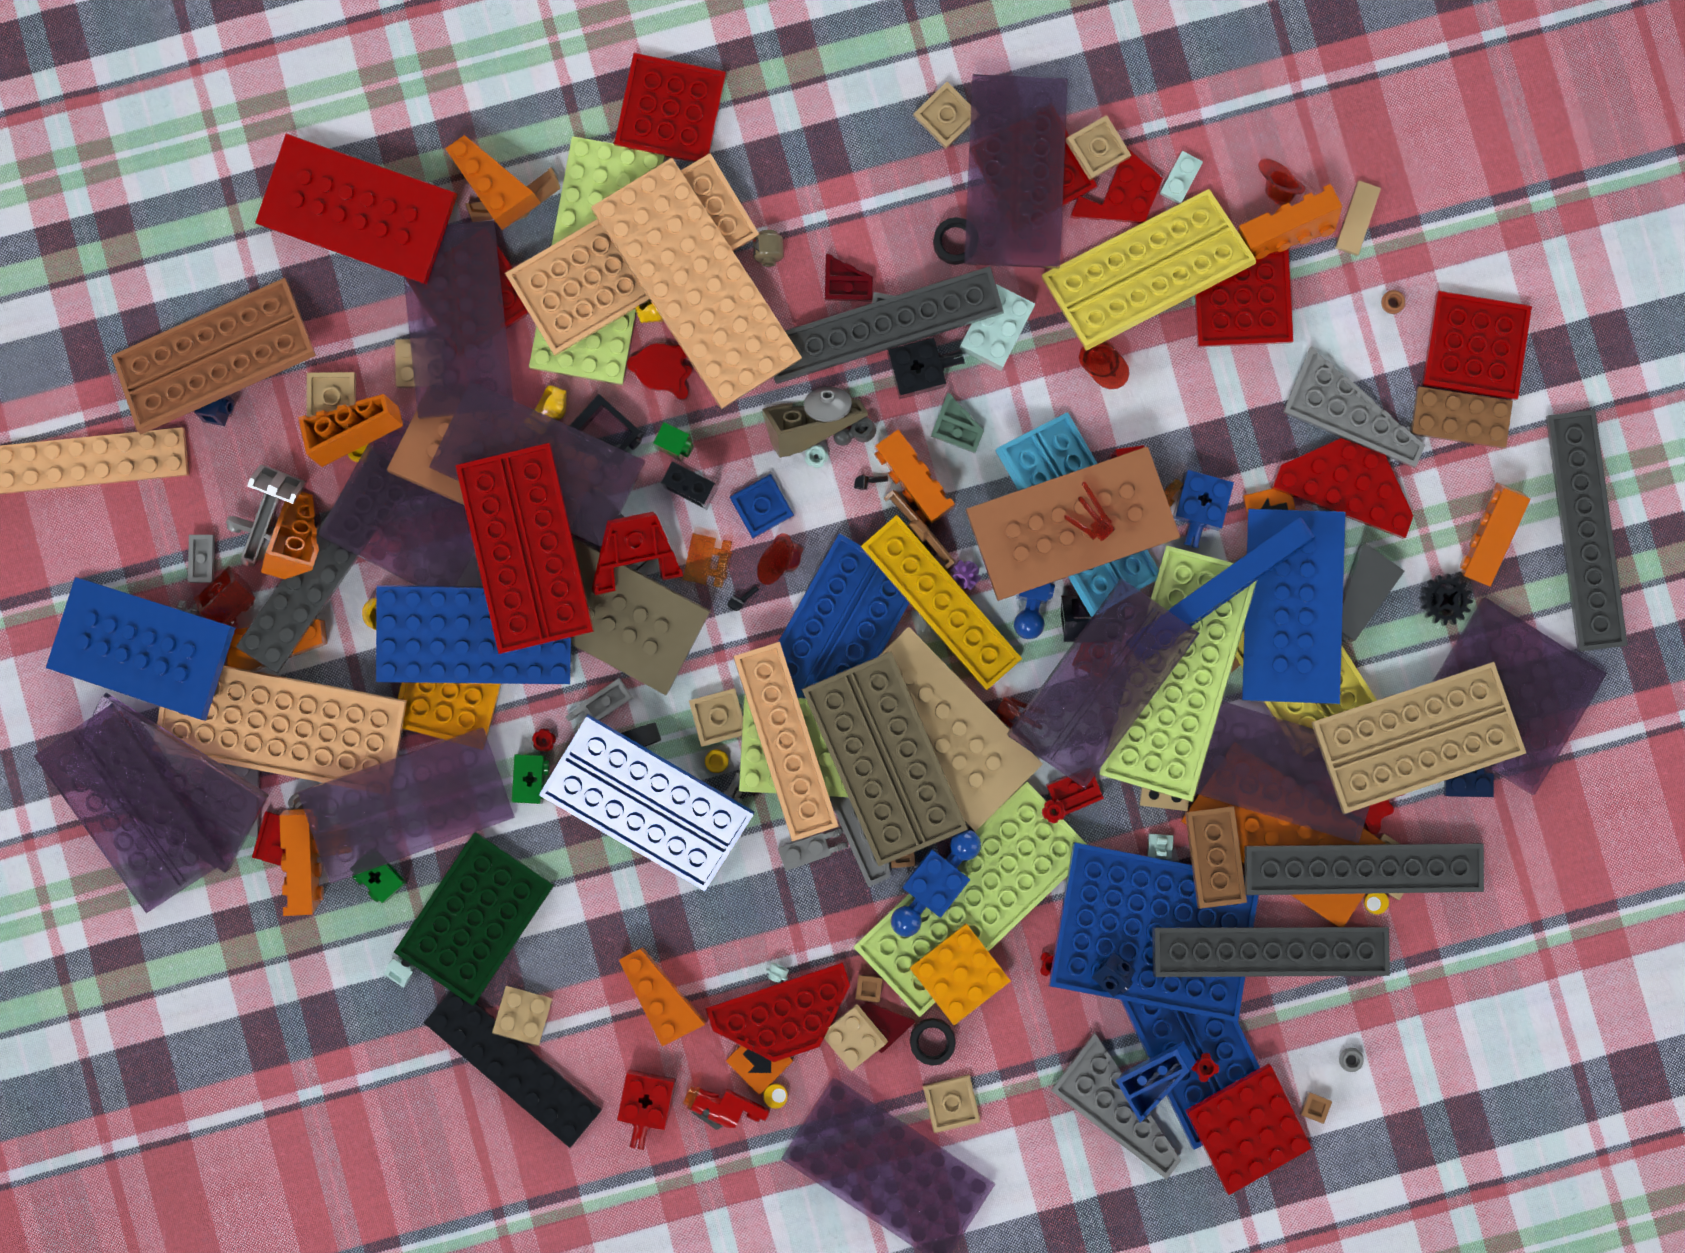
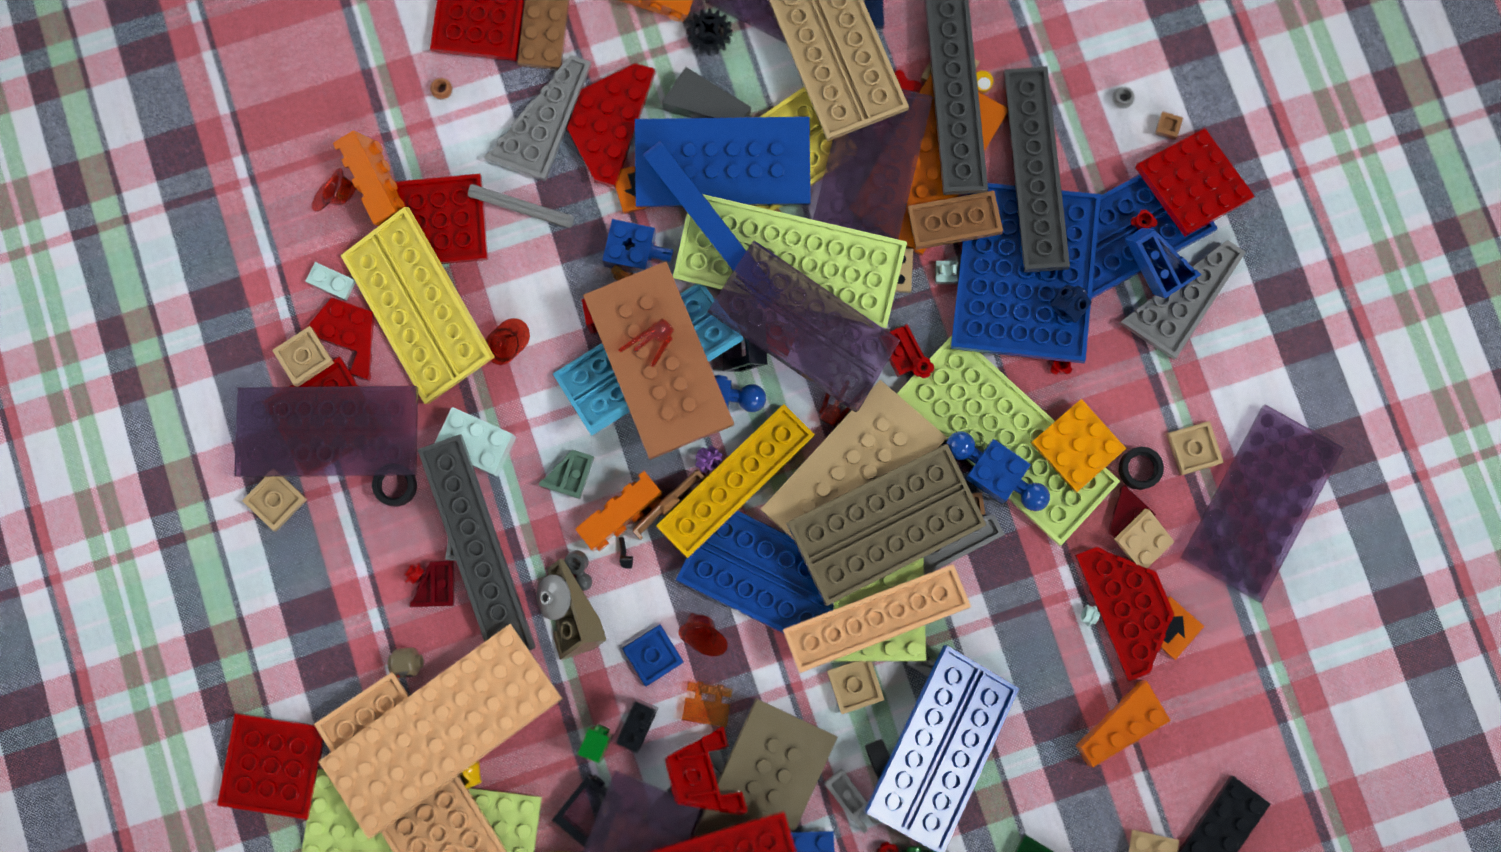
camera: 95 degrees left, 5 degrees down
(643, 1116) = (1234, 733): red brick -> none
(662, 369) = (525, 759): red tile -> none
(716, 761) = (896, 684): yellow tile -> none
(723, 1111) = (1222, 657): red plate -> none
(736, 603) = (746, 674): black hand -> none
(775, 1095) = (1203, 610): yellow tile -> none
(809, 849) = (975, 591): light grey hinge -> none
(819, 450) = (603, 599): light aqua plate -> none
(860, 258) = (413, 573): none -> red plate
(868, 988) = (1097, 529): medium nougat plate -> none
(931, 374) = (503, 509): black brick -> none
(1254, 384) = (520, 206): none -> light grey axle
(1357, 218) = (365, 122): tan tile -> none

